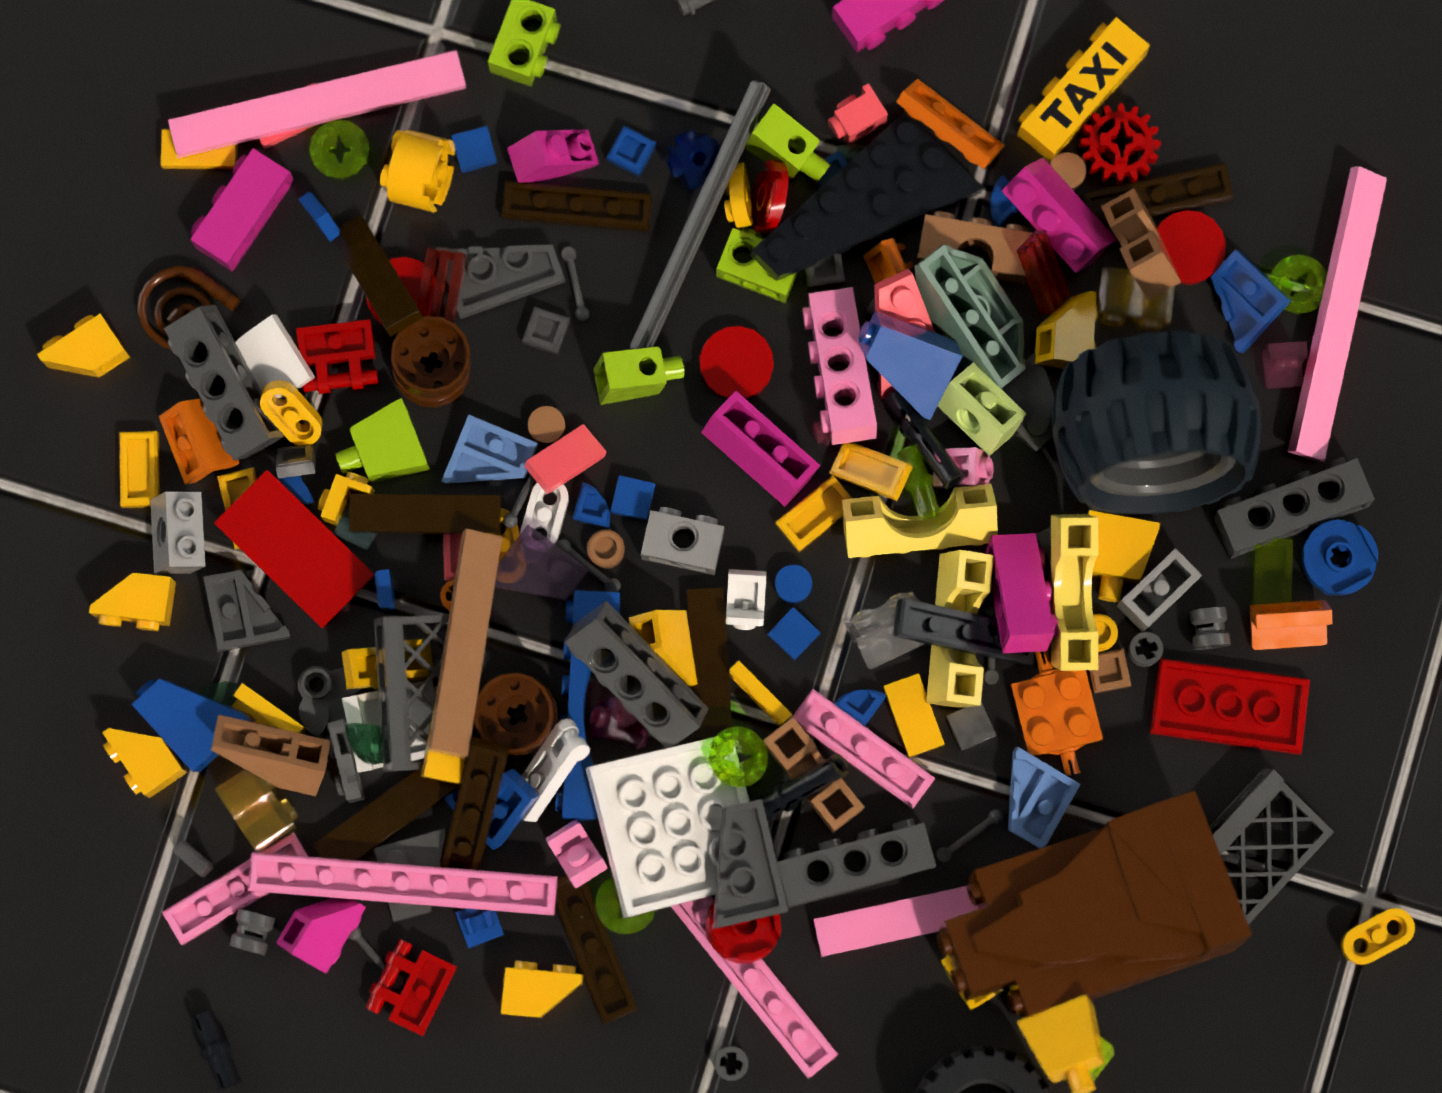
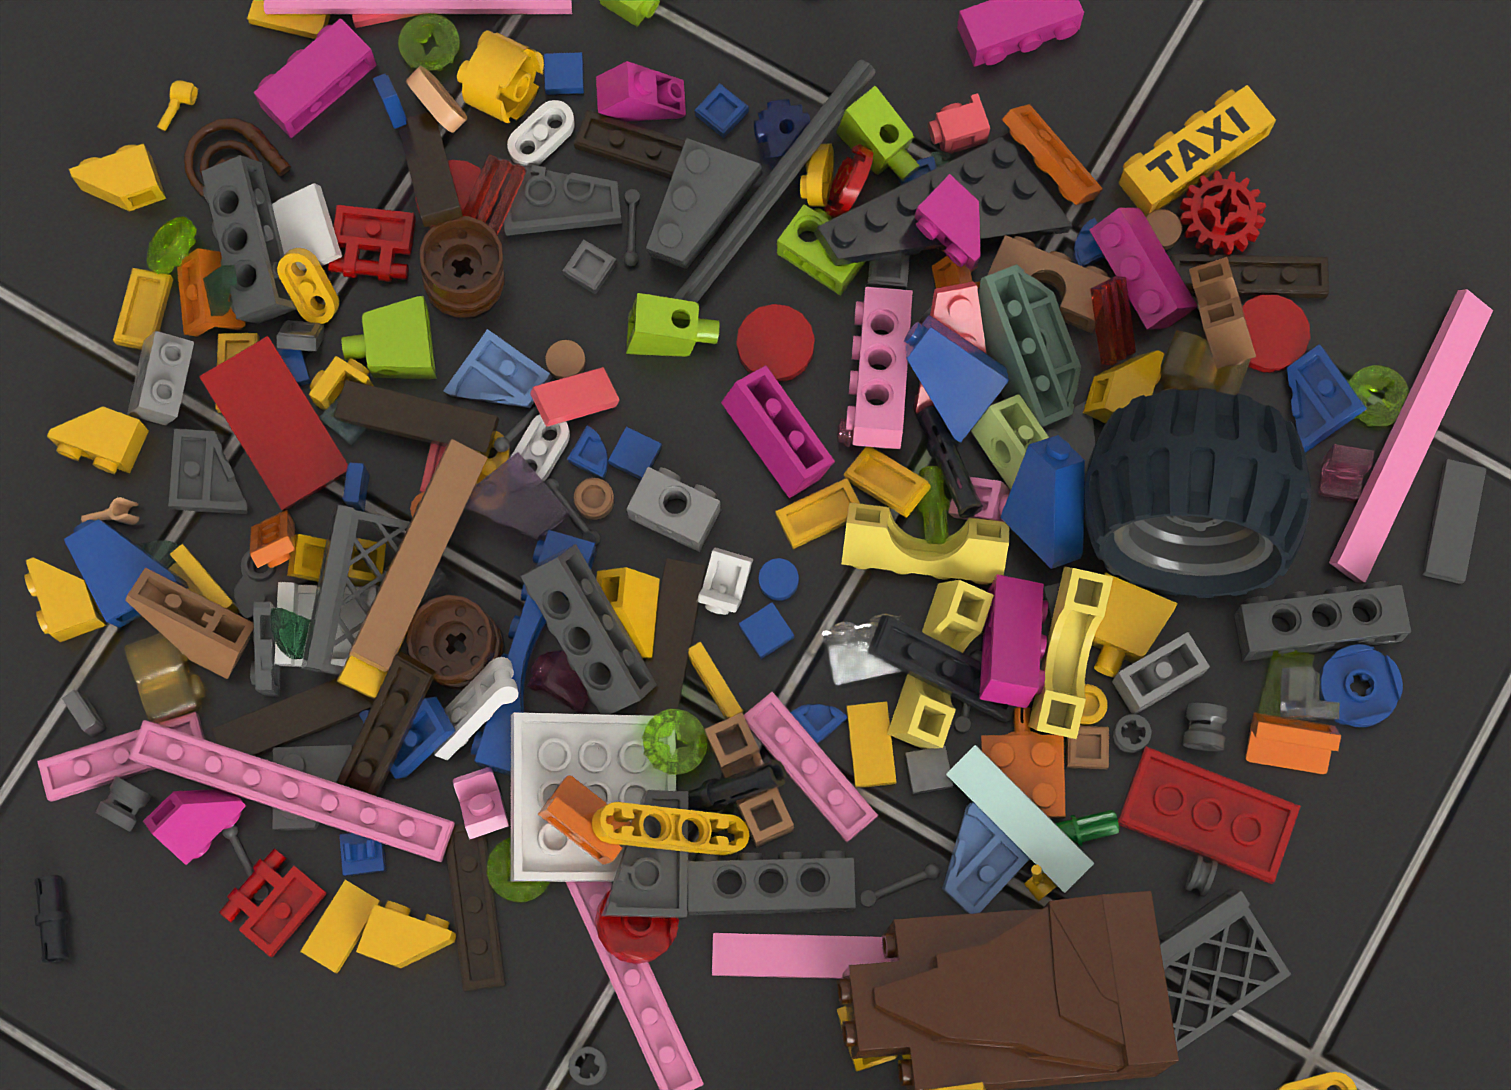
camera: 15 degrees right, 5 degrees down
(117, 253) = (180, 93): none -> yellow hand
(145, 412) = (171, 245): none -> clear neon green gear
(168, 666) = (117, 511): none -> light nougat hand
(210, 436) = (218, 289): none -> clear green tile
(327, 660) = (273, 540): none -> orange plate
(362, 203) = (436, 99): none -> light nougat beam
(468, 215) = (538, 134): none -> white plate
(478, 994) = (340, 927): none -> yellow tile
(633, 247) = (698, 200): none -> dark grey wedge
(678, 847) = (572, 811): none -> orange panel
(756, 837) = (671, 828): none -> yellow beam
(876, 213) = (953, 219): none -> dark pink slope
(1024, 459) = (1049, 501): none -> blue slope
(1063, 751) = (1020, 818): none -> light aqua tile
(1094, 804) = (1039, 883): none -> yellow hand
(1116, 749) = (1090, 826): none -> green axle
(1235, 763) = (1201, 875): none -> dark grey bush
(1289, 579) = (1301, 696): none -> clear panel
(1392, 384) = (1454, 521): none -> dark grey tile

